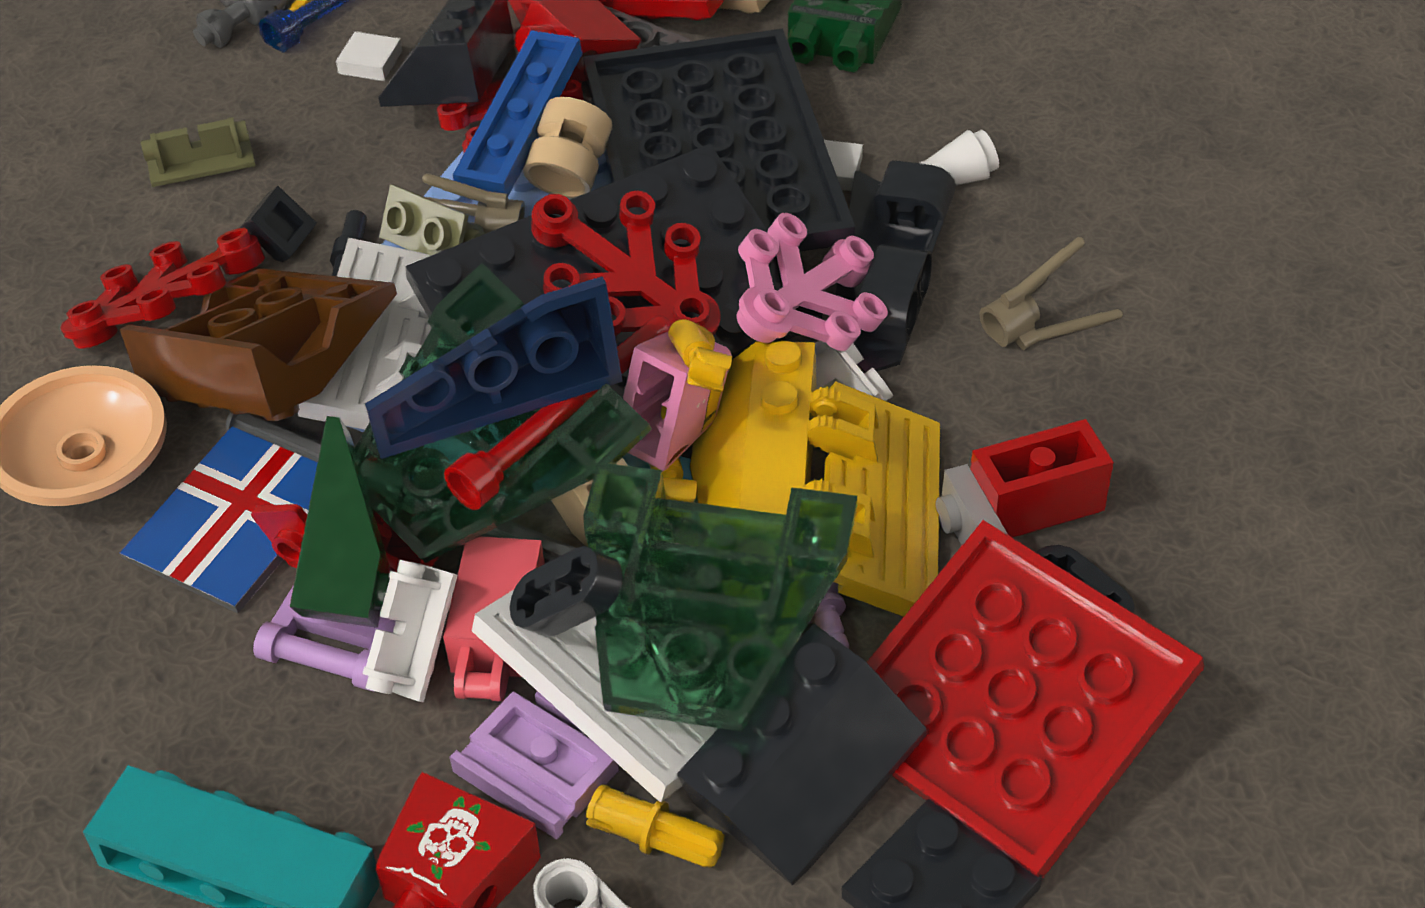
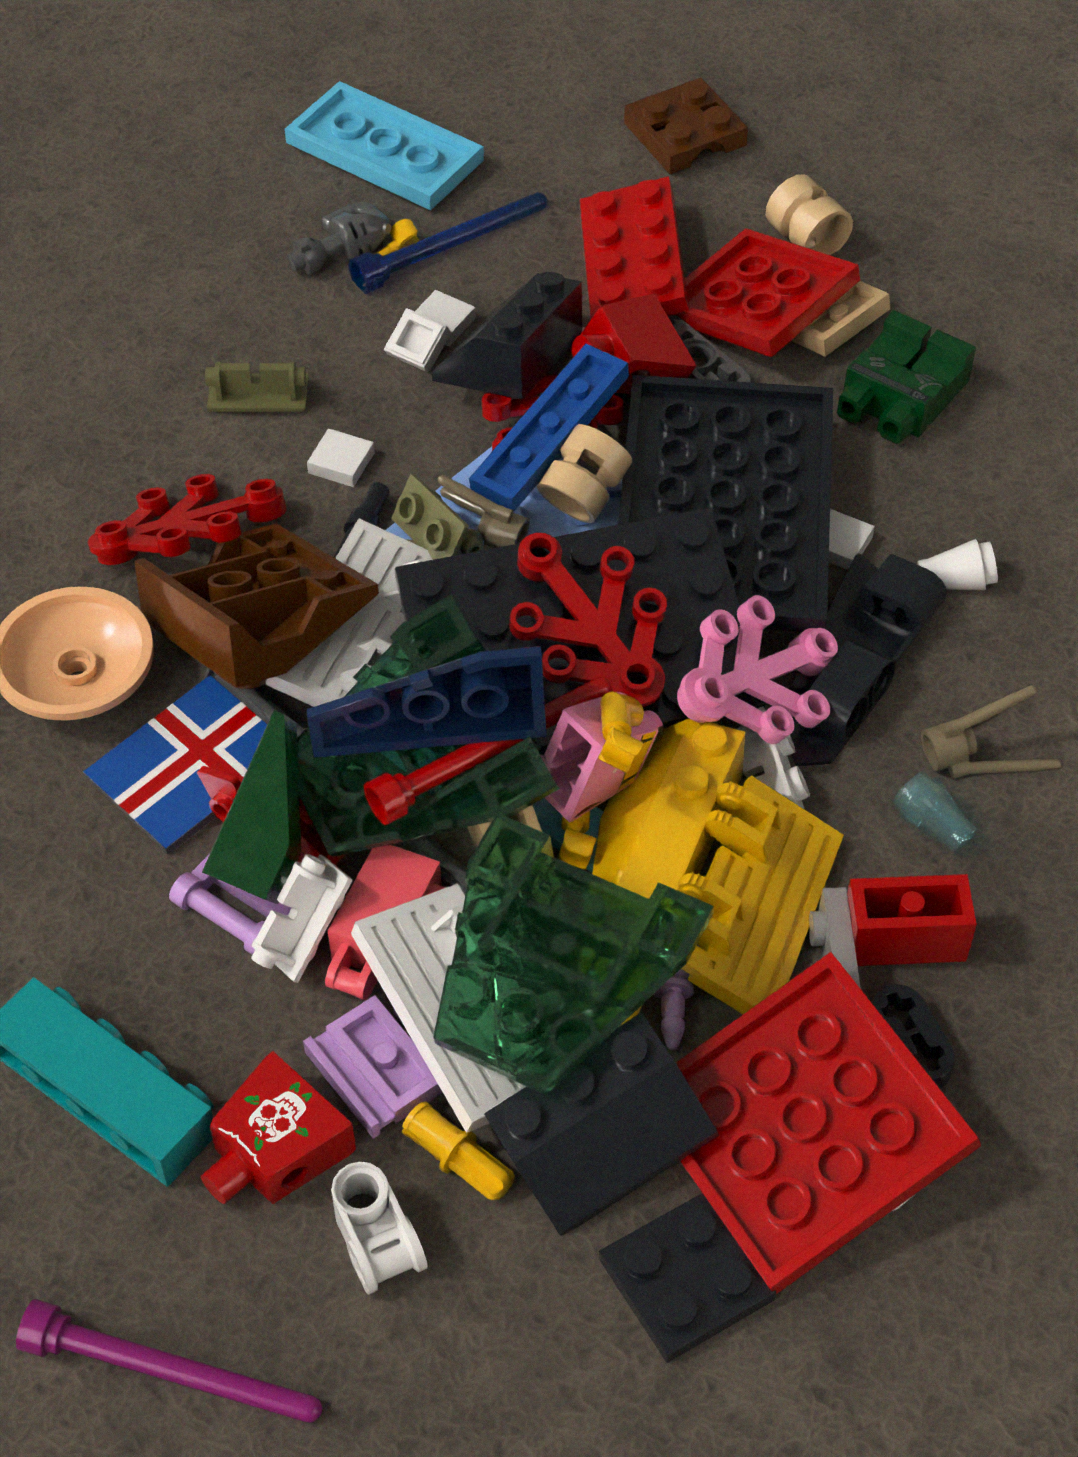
camera: 15 degrees right, 5 degrees up
(279, 224) = (307, 481): black plate -> none
(313, 194) = (340, 457): none -> white tile
(351, 78) = (417, 340): none -> white tile
(551, 598) = (432, 927): black beam -> none
(1020, 380) = (931, 808): none -> clear light blue cone

